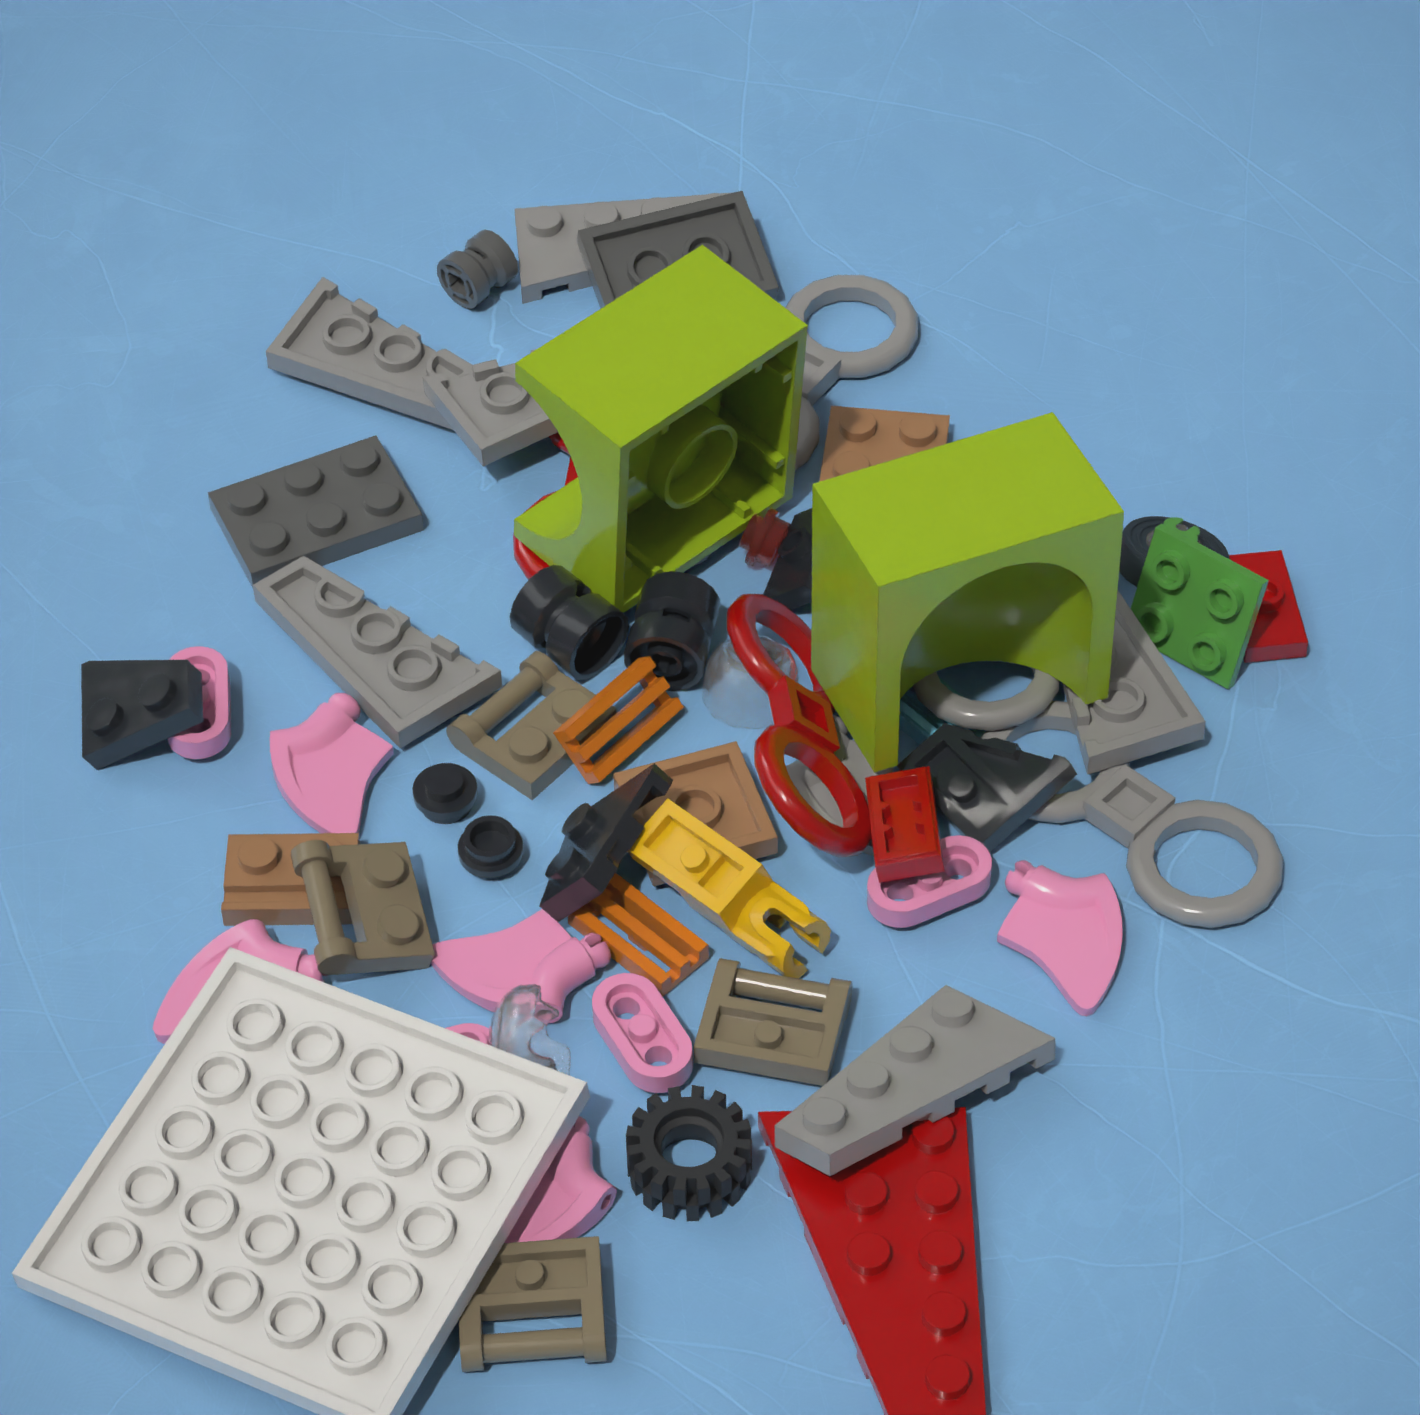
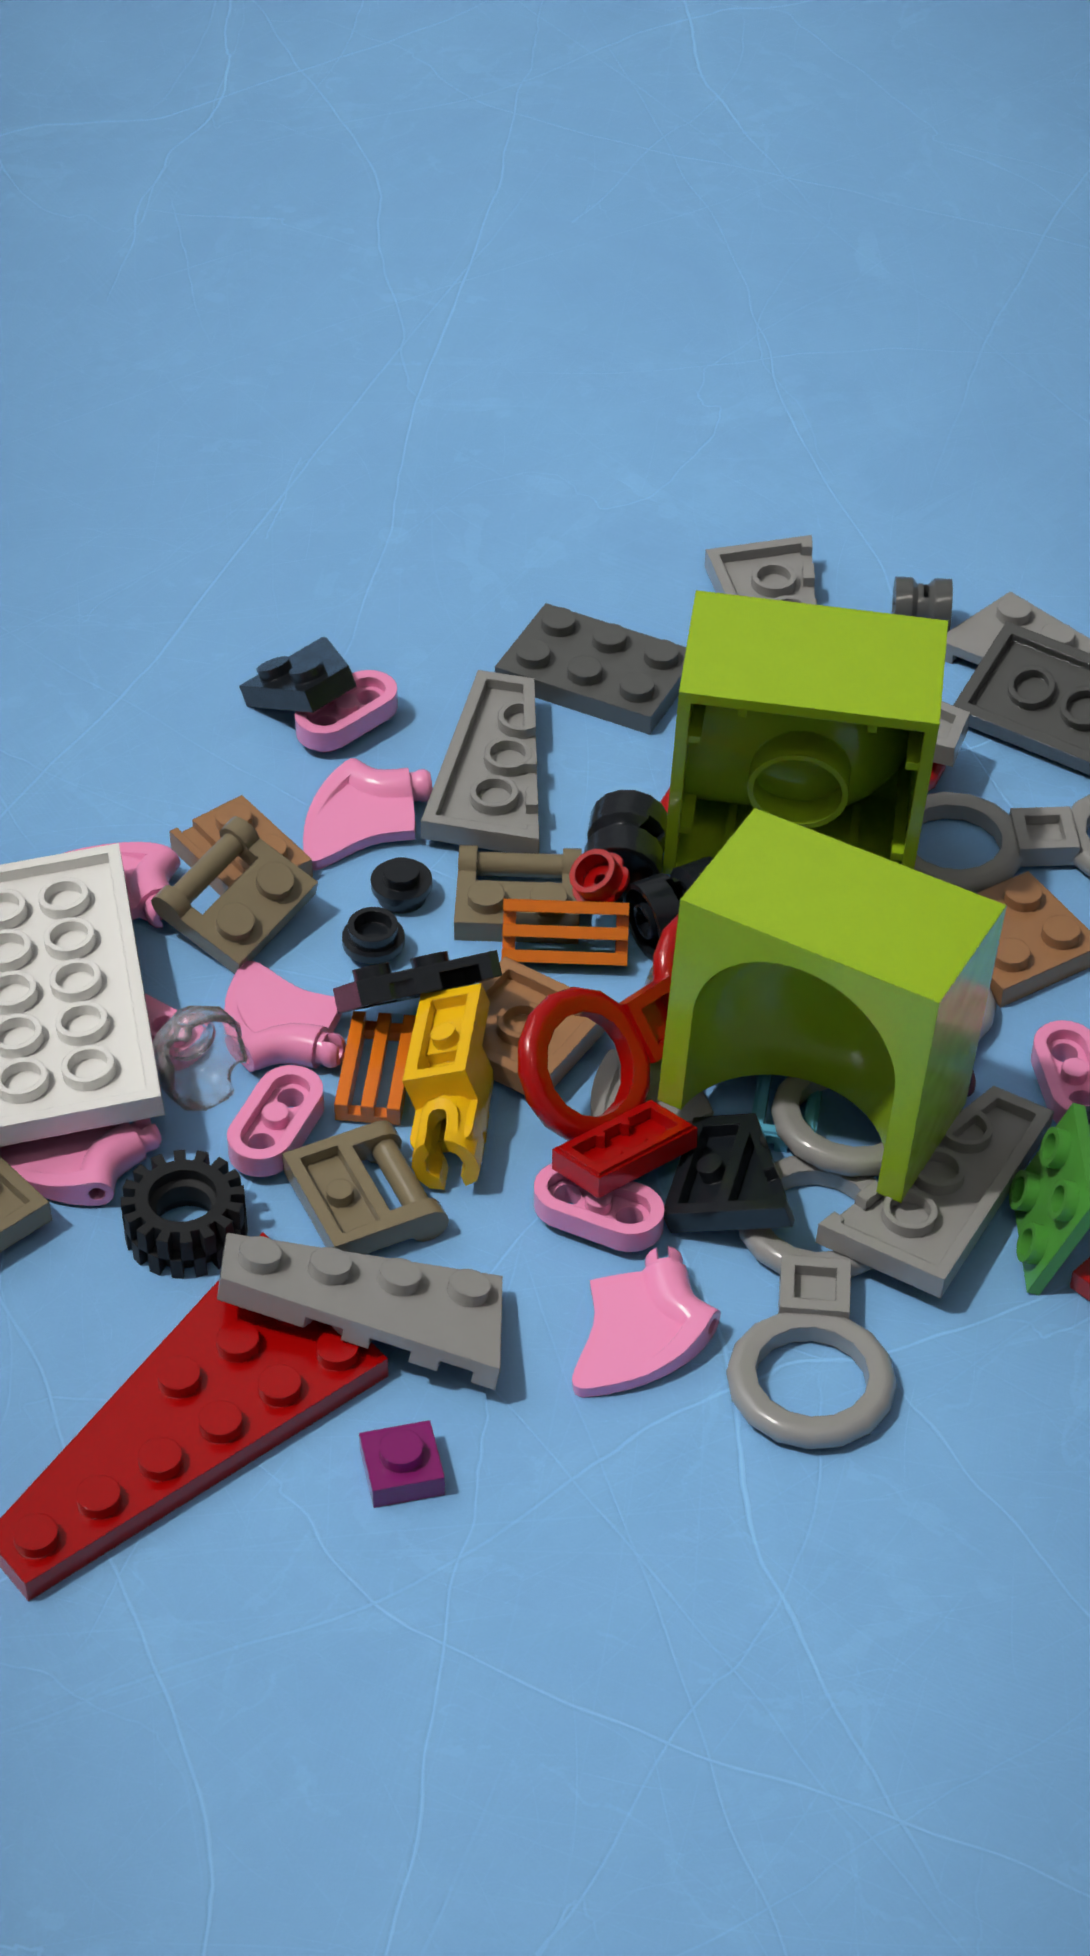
camera: 50 degrees right, 5 degrees down
(602, 641) = (598, 876): none -> red plate
(1069, 1163) = (402, 1464): none -> magenta plate

